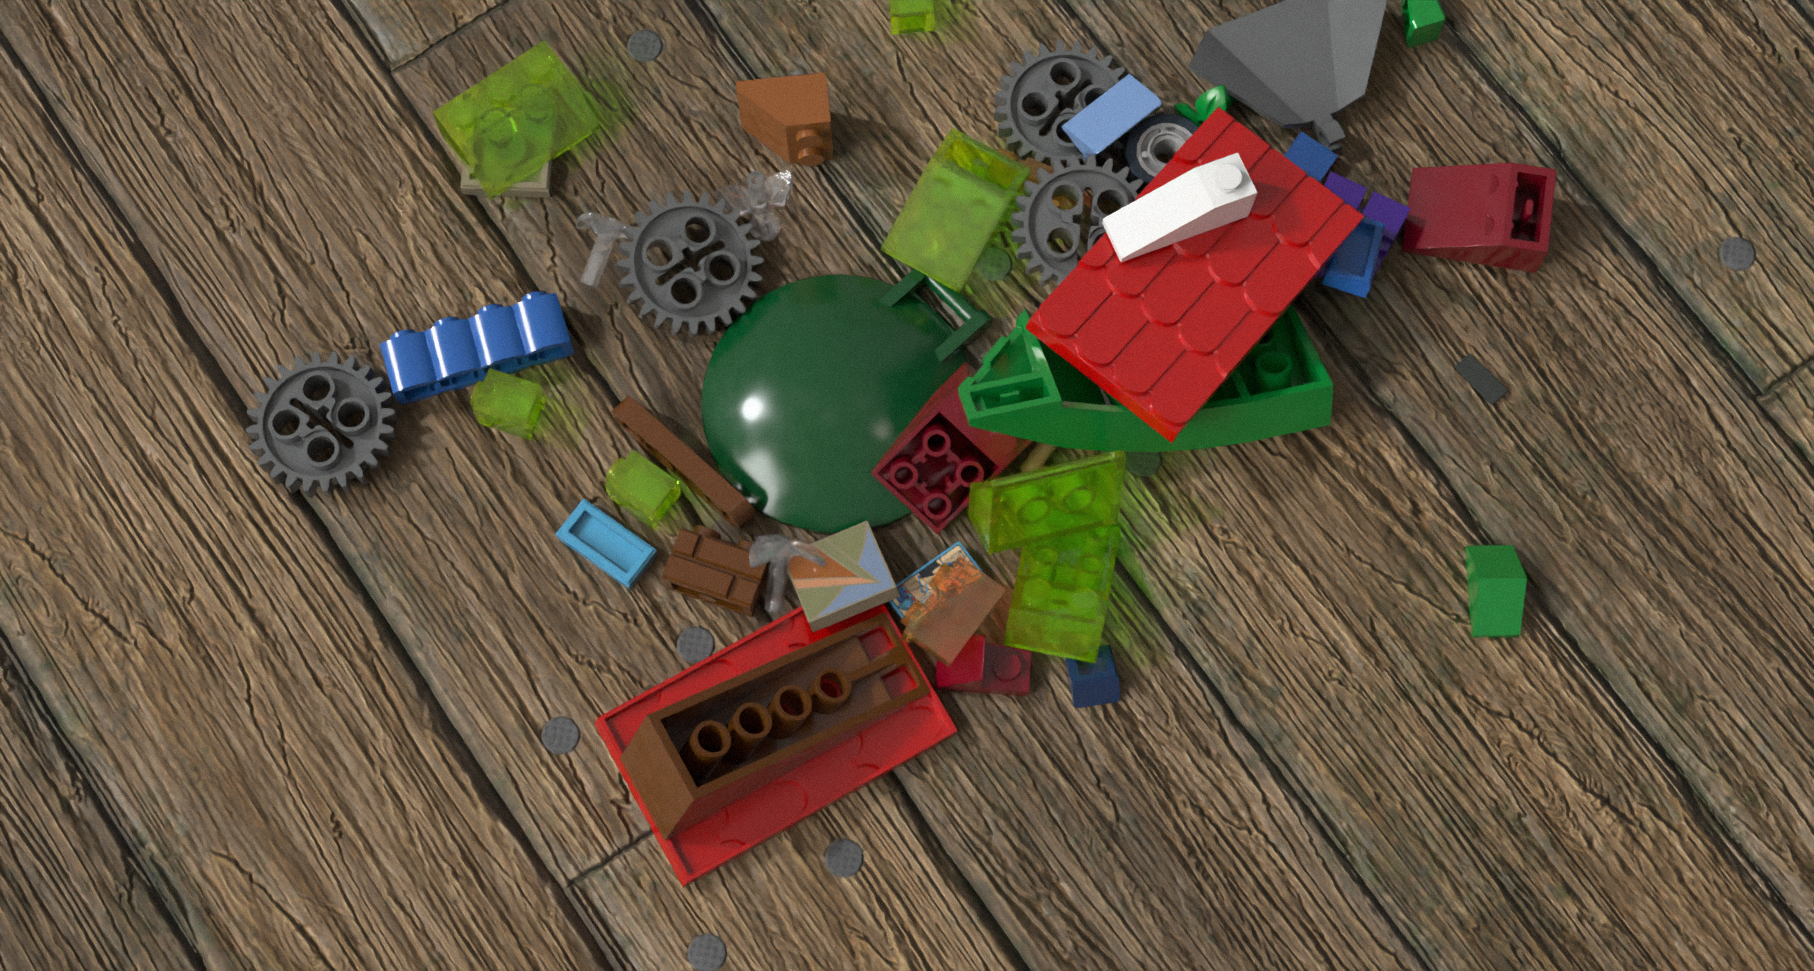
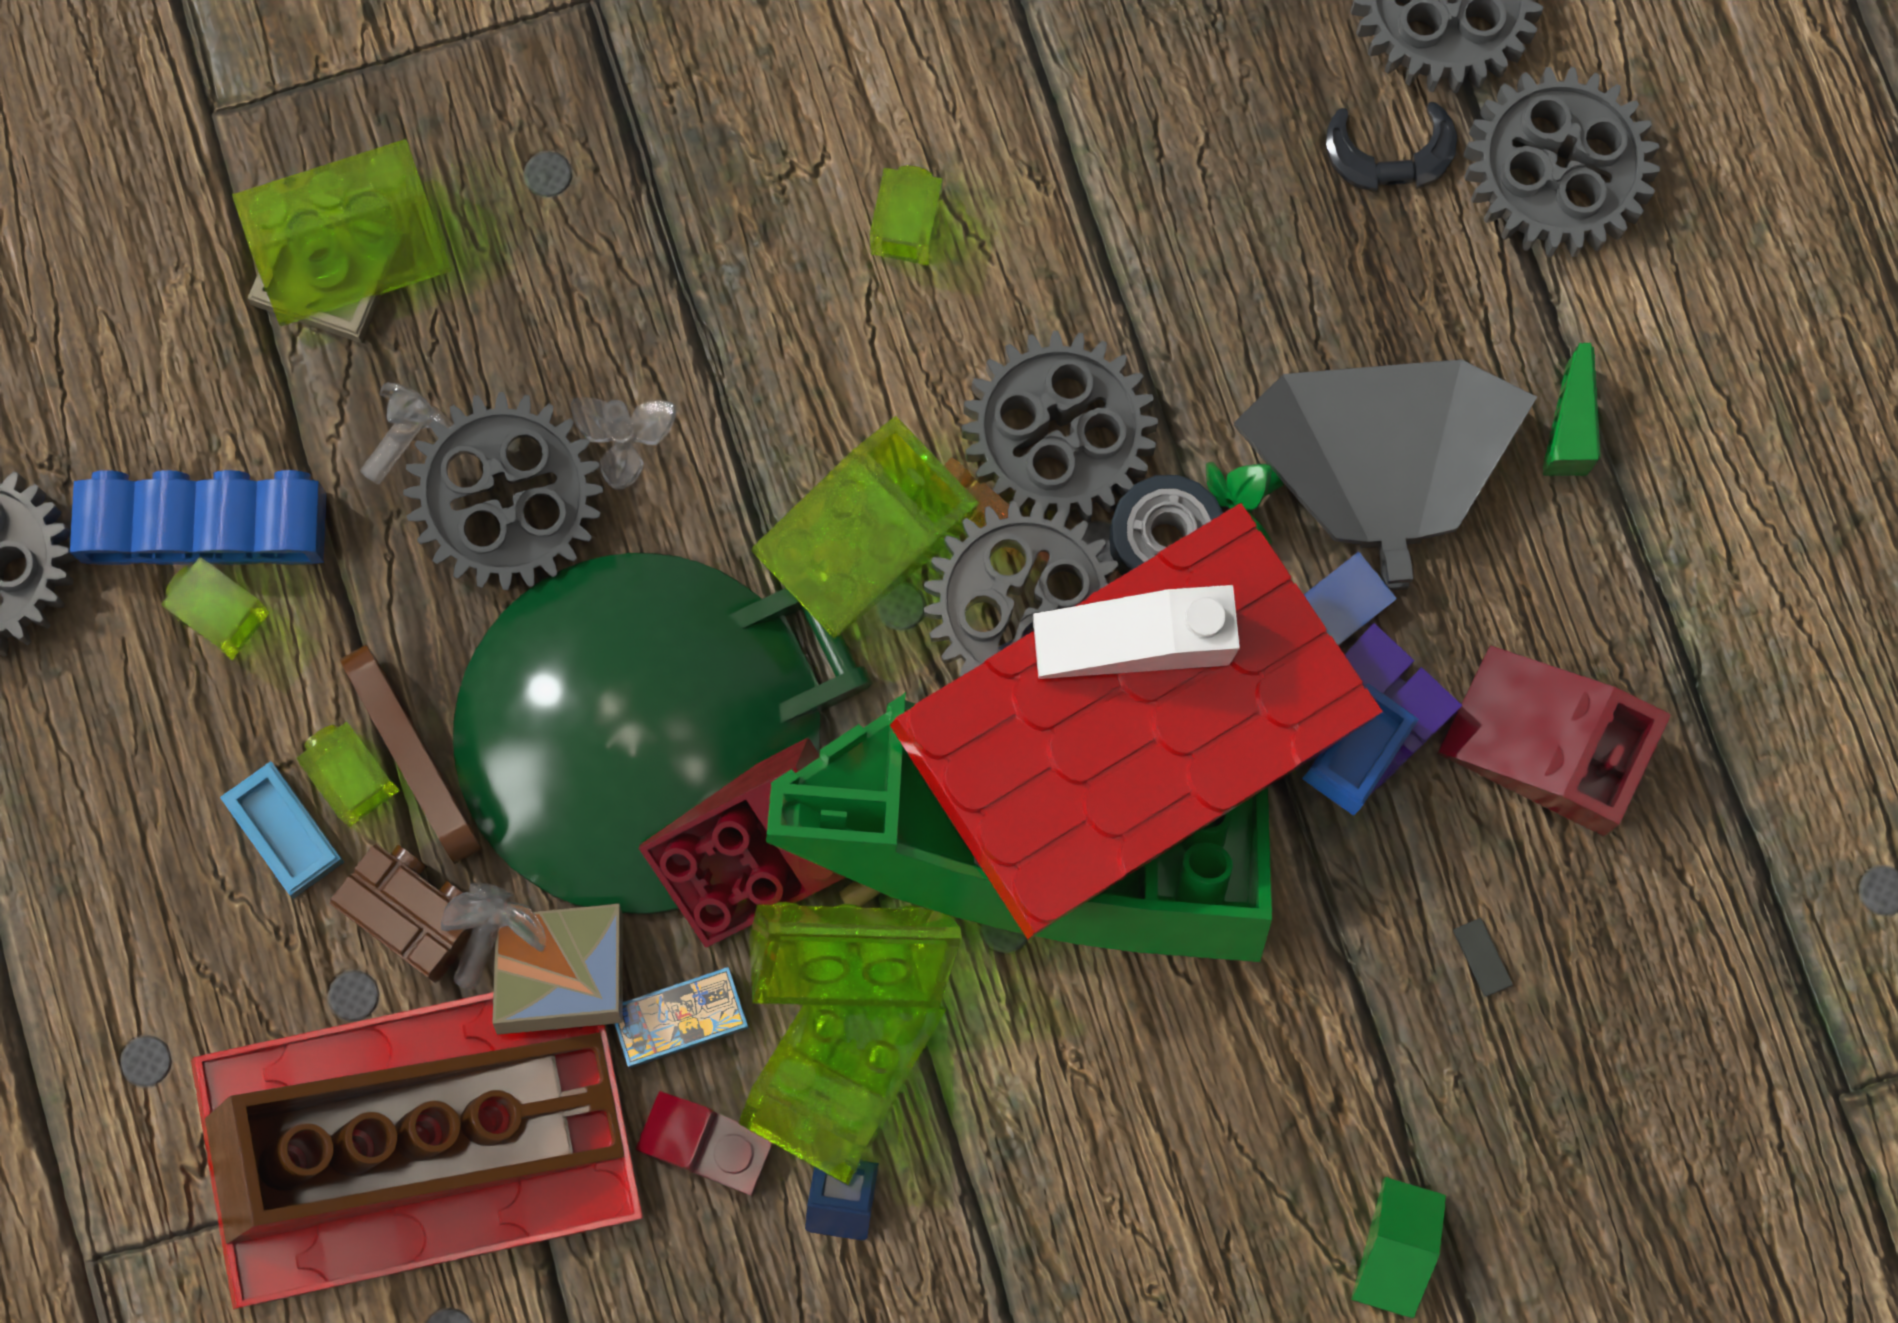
camera: 15 degrees right, 5 degrees up
(789, 116) = (697, 334): dark orange slope -> none
(953, 610) = (681, 1064): clear orange bracket -> none
(1111, 116) = (1110, 461): medium blue slope -> none

